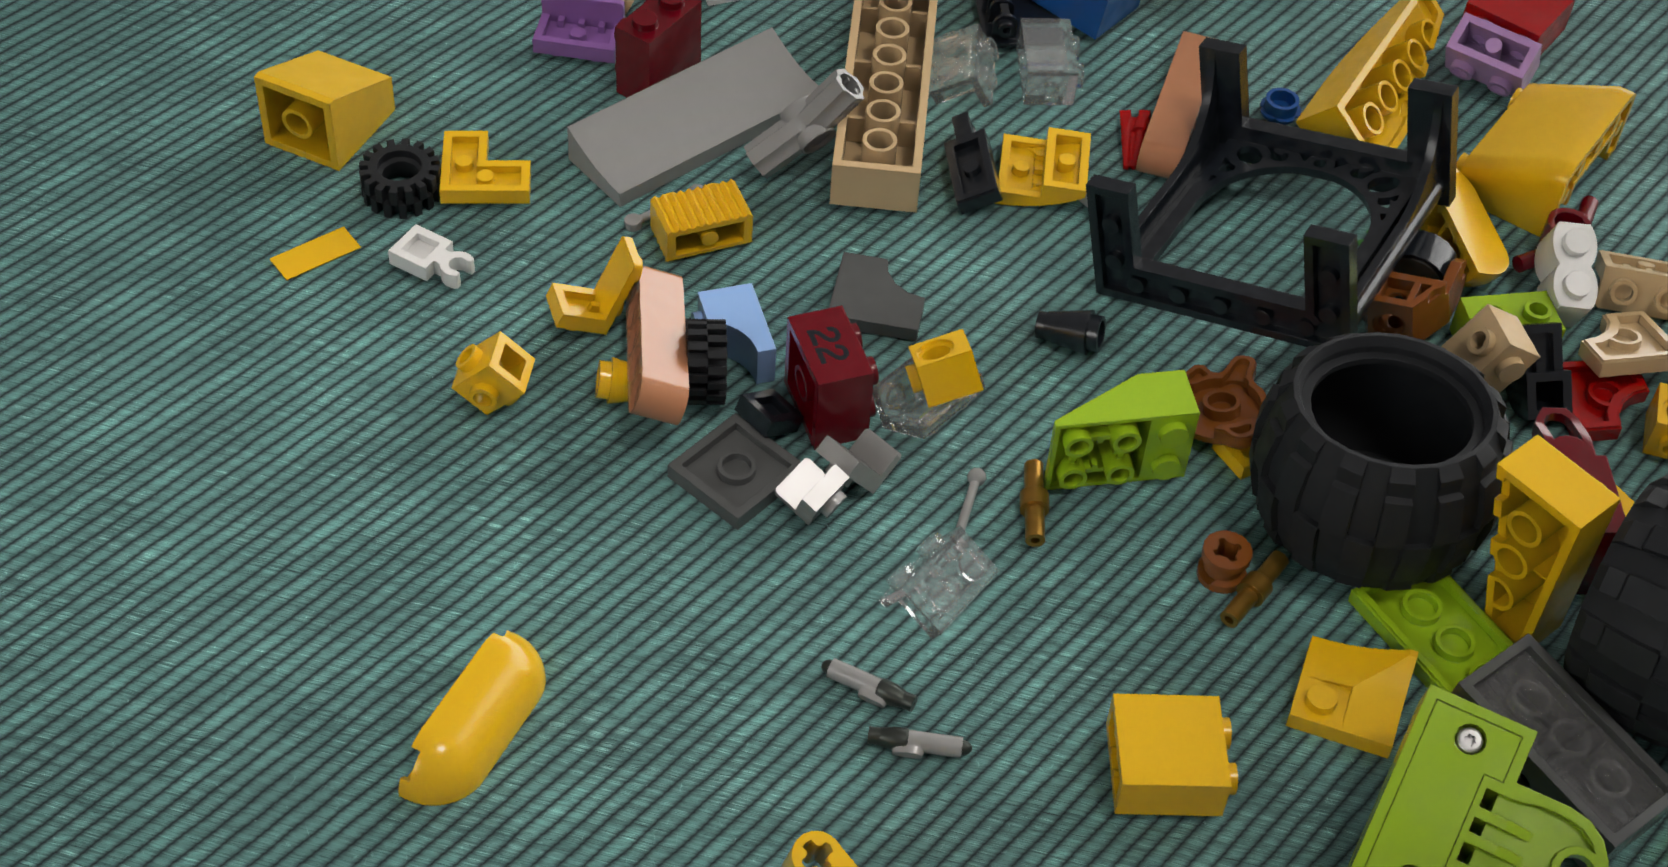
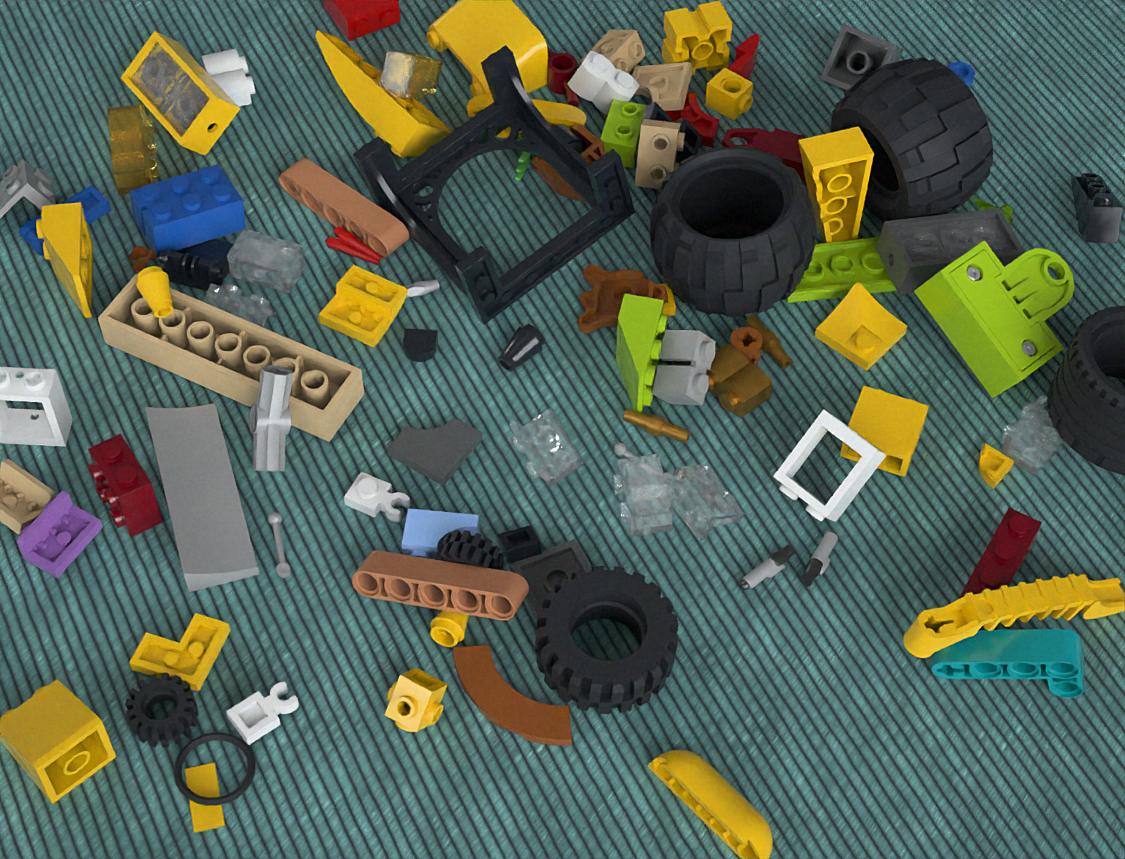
camera: 65 degrees left, 5 degrees up
(341, 216) = (218, 800): none -> black tyre
(534, 465) = (506, 706): none -> dark orange tile
(596, 308) = (367, 604): yellow bracket -> none
(662, 573) = (612, 597): none -> black tyre
(700, 220) = (313, 524): yellow brick -> none
(772, 265) = (372, 495): none -> white plate
(812, 491) = (608, 539): bracket -> none
(829, 375) = (518, 492): dark red brick -> none
(865, 462) = (589, 503): light grey bracket -> none
(902, 508) = (643, 494): none -> clear brick
(944, 368) = (537, 415): yellow brick -> none
(972, 166) = (342, 343): black hinge -> none
(1022, 239) = (420, 344): none -> black tile
(1090, 710) = (853, 482): none -> white window
(1149, 487) = (686, 378): none -> light grey piece
(1154, 561) = (737, 381): none -> pearl gold brick
(1399, 55) = (410, 74): none -> clear yellow brick
(1491, 55) = (395, 30): lavender brick -> none

